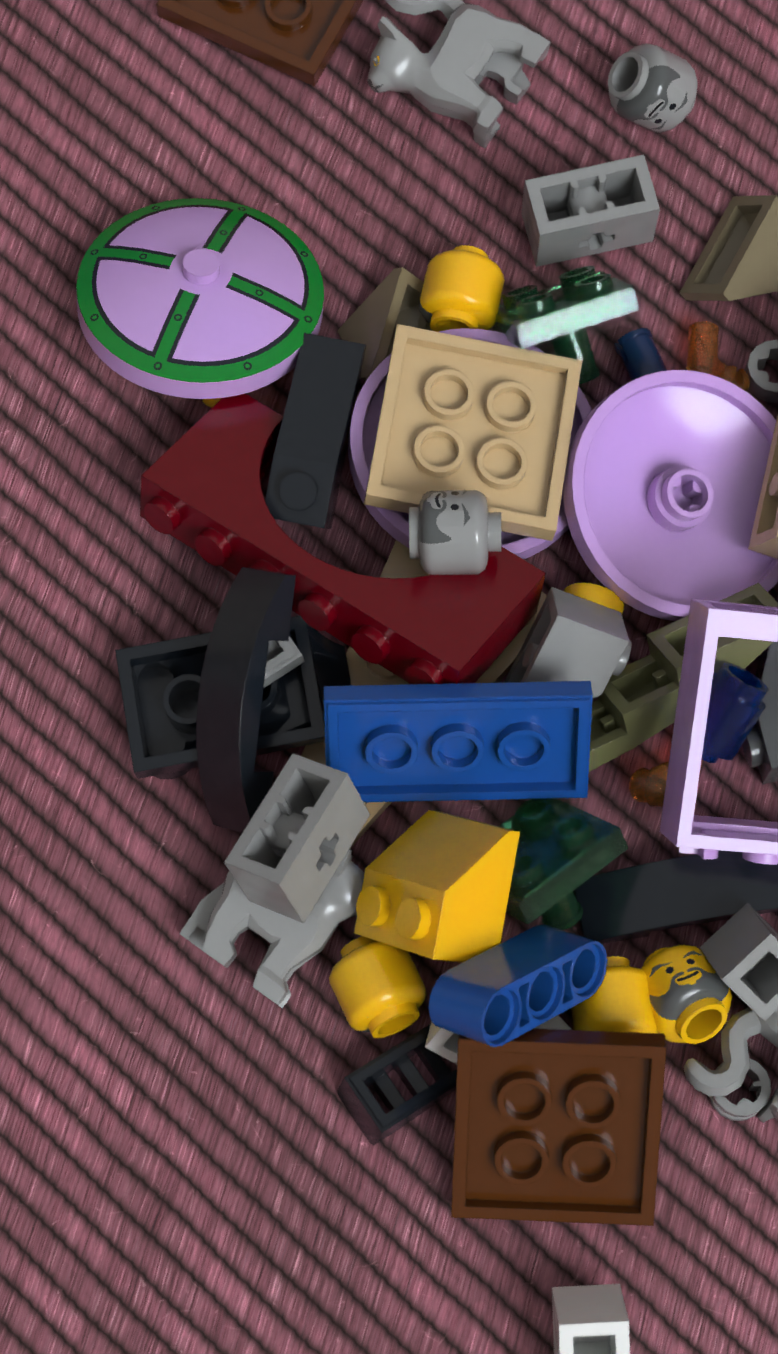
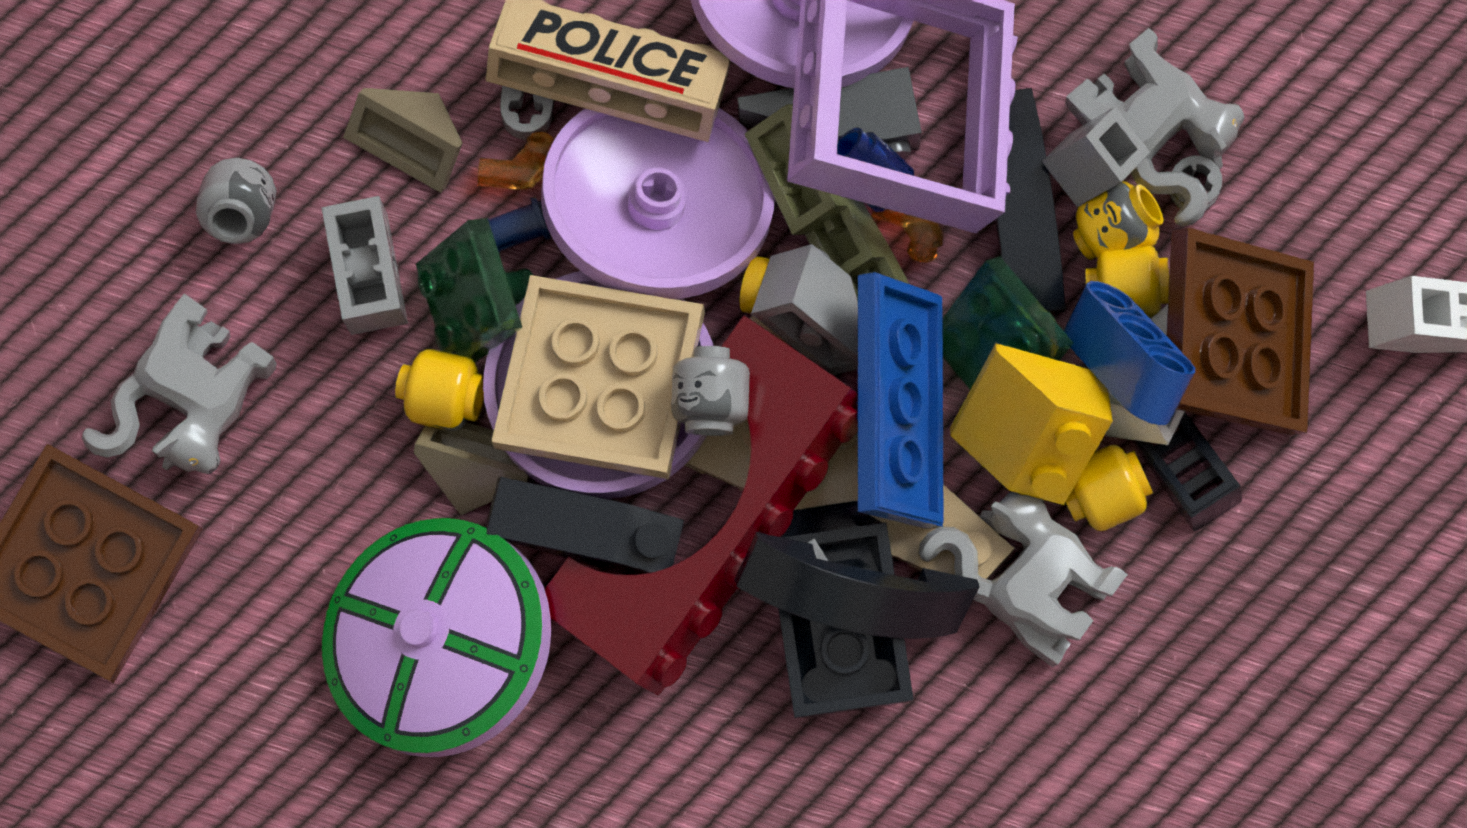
camera: 85 degrees left, 5 degrees up
(297, 837) = (993, 541): light grey brick -> none

